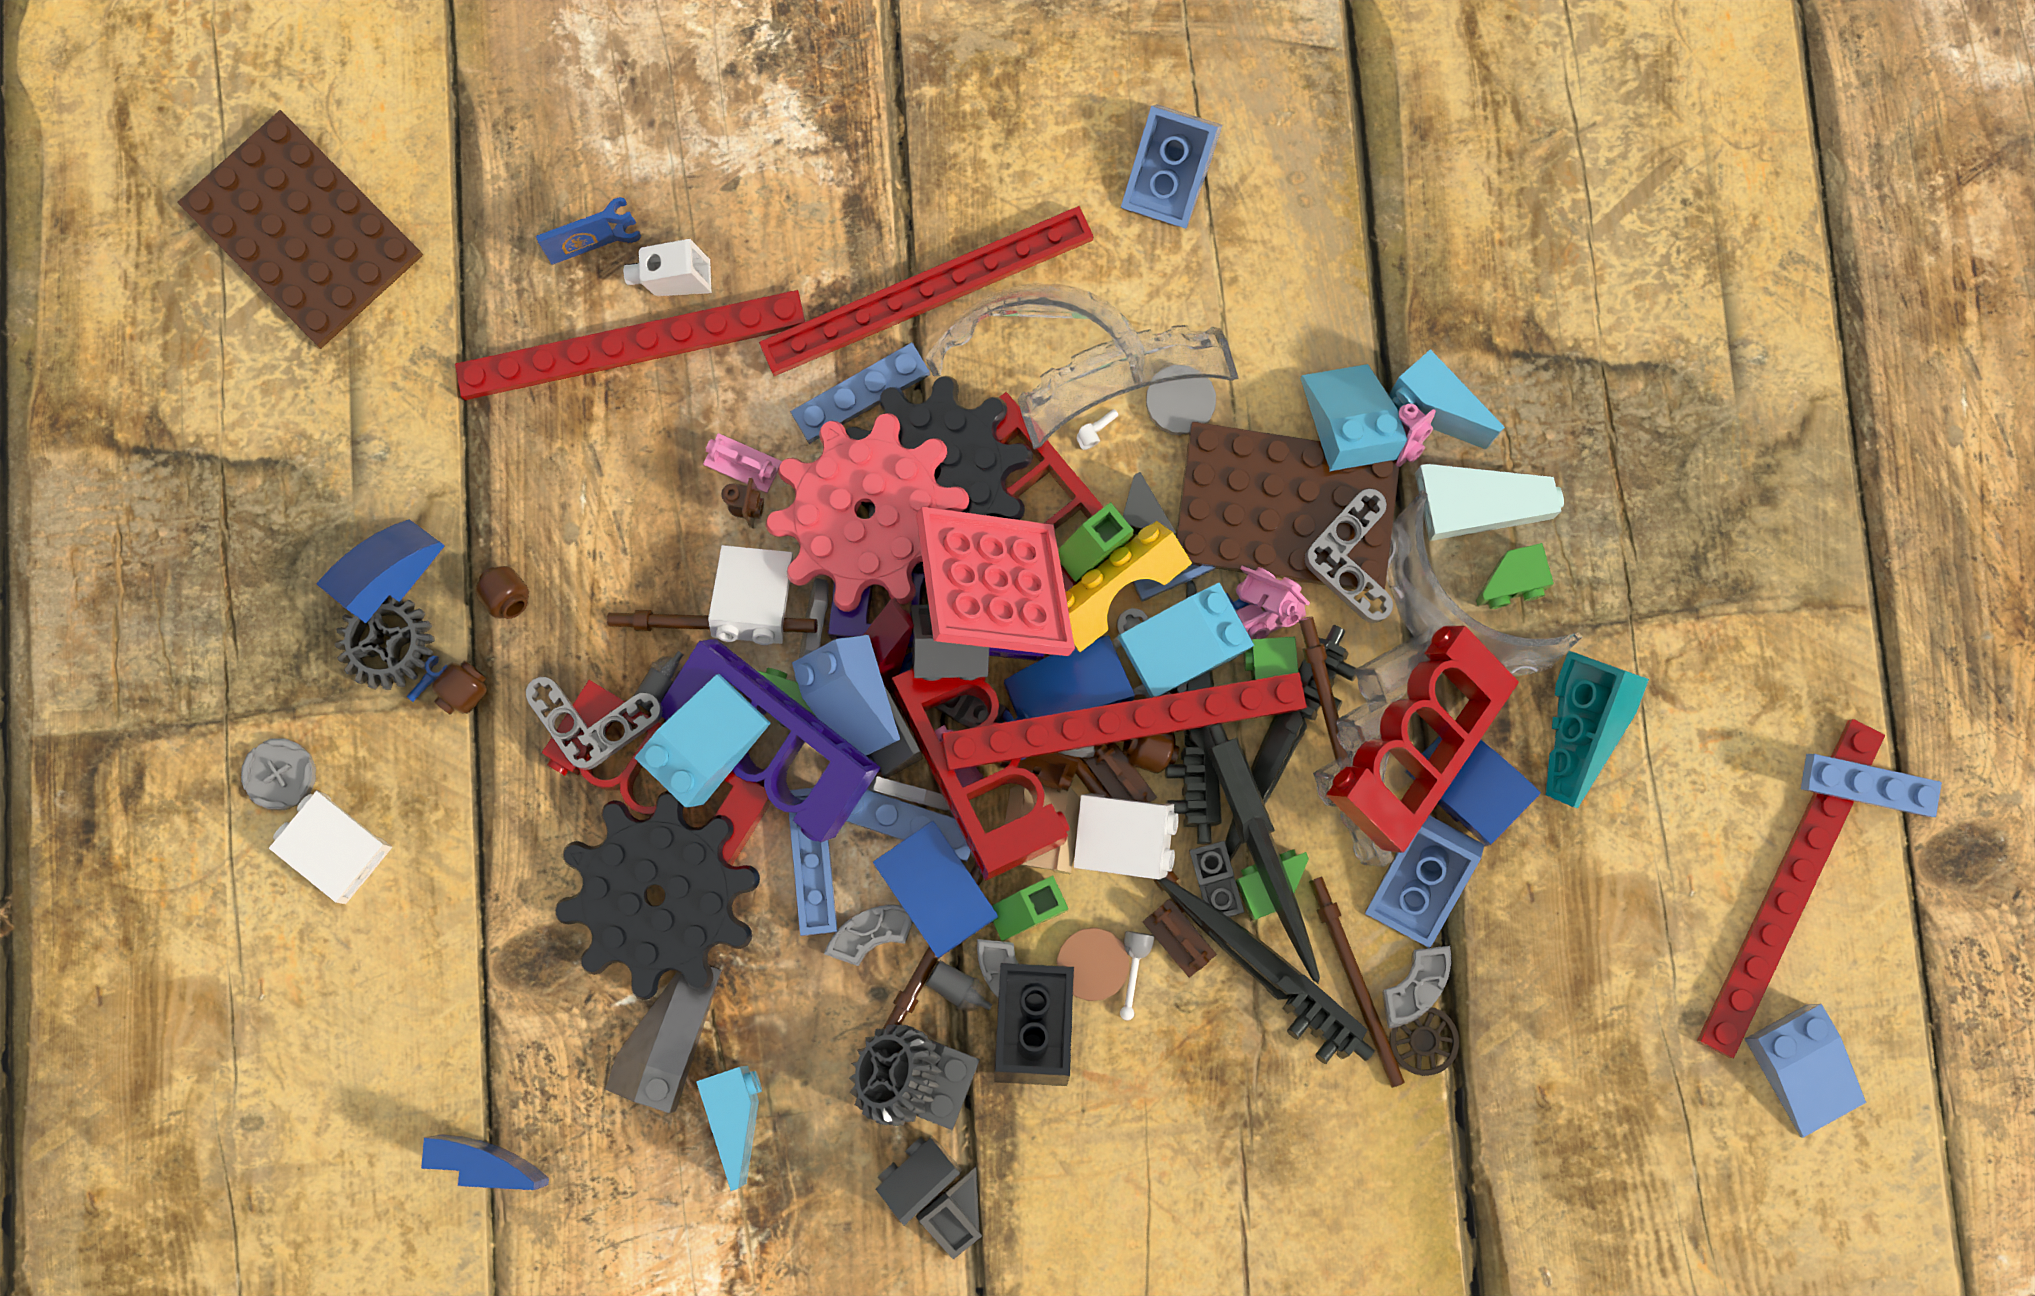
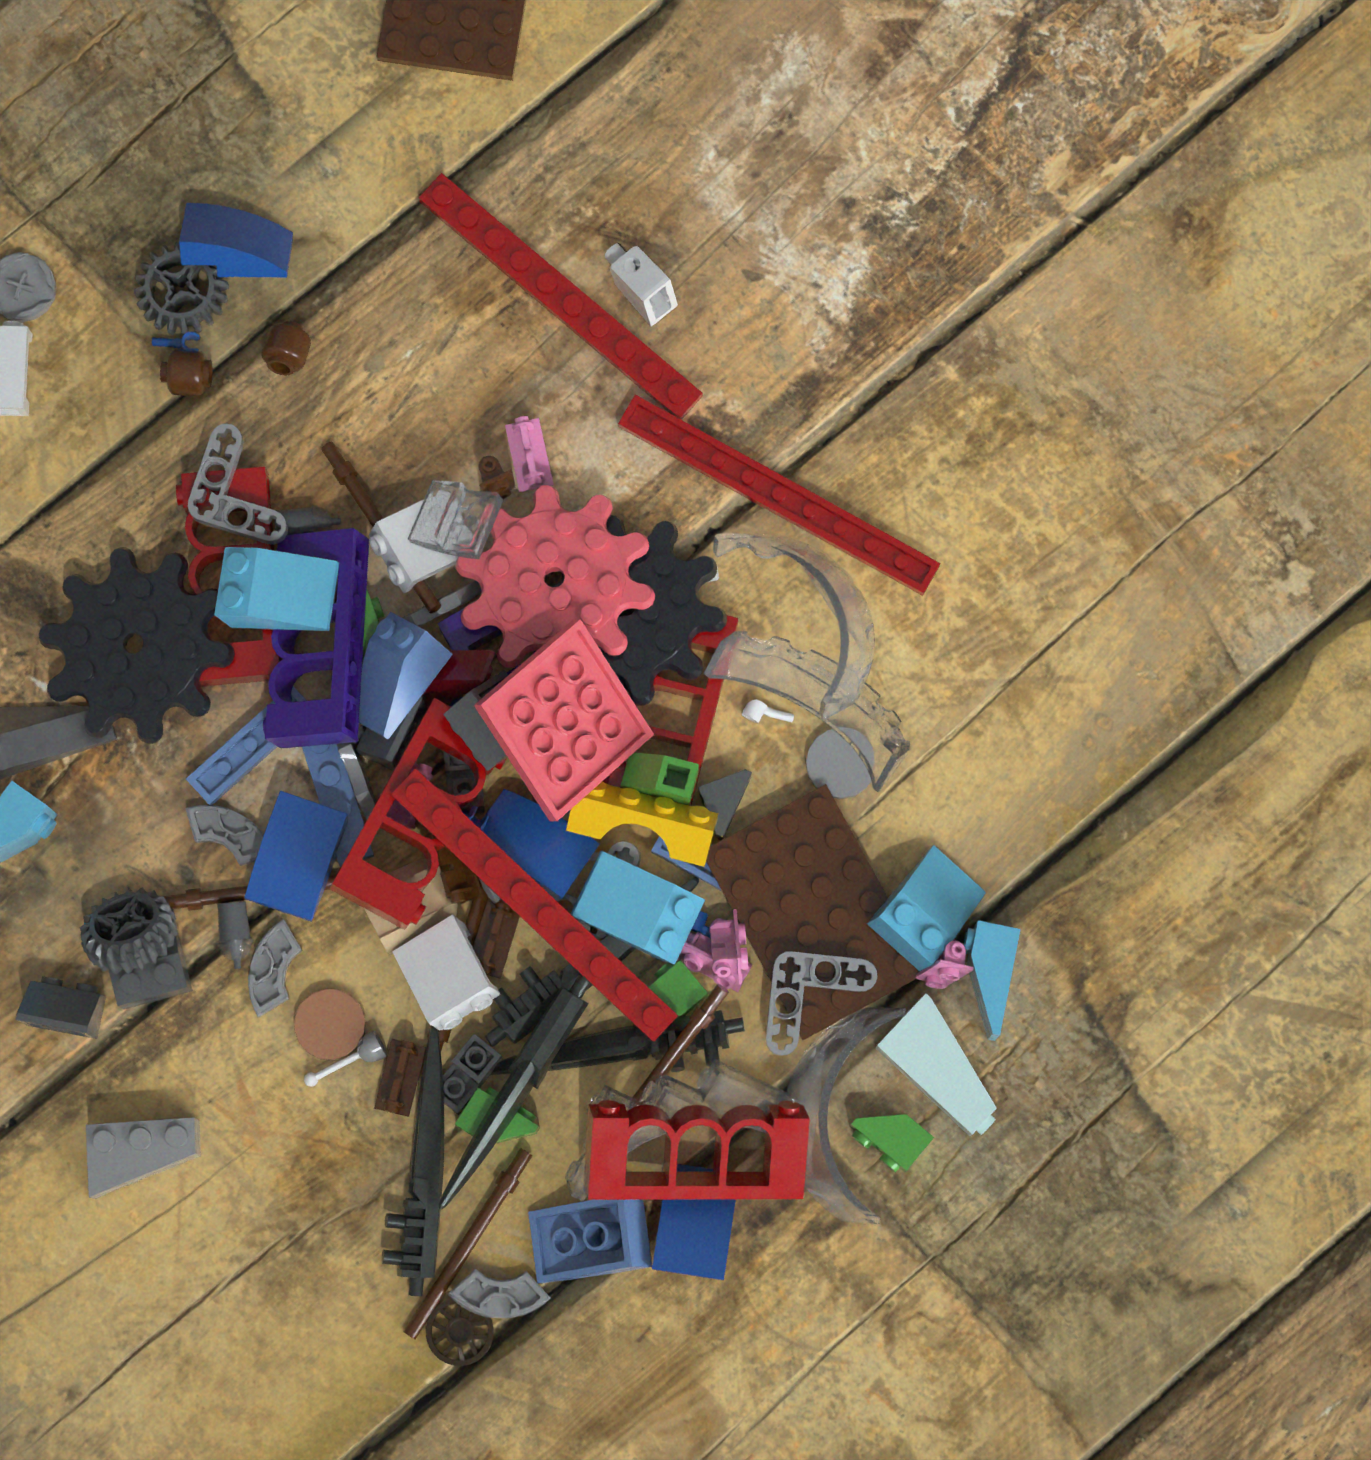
camera: 55 degrees right, 0 degrees up
(588, 233) = (621, 197): blue flag -> none
(755, 554) = (455, 519): none -> clear slope
(860, 391) = (656, 504): medium blue plate -> none
(954, 1216) = (55, 1058): dark grey slope -> none
(1028, 908) = (336, 941): bright green slope -> none
(1034, 1024) = (246, 1011): black slope -> none
(1083, 1202) = (135, 1150): none -> light grey wedge
(1152, 752) = (531, 948): reddish brown head -> none
(1170, 165) = (1033, 611): medium blue slope -> none
(1591, 718) = (828, 1281): teal wedge -> none

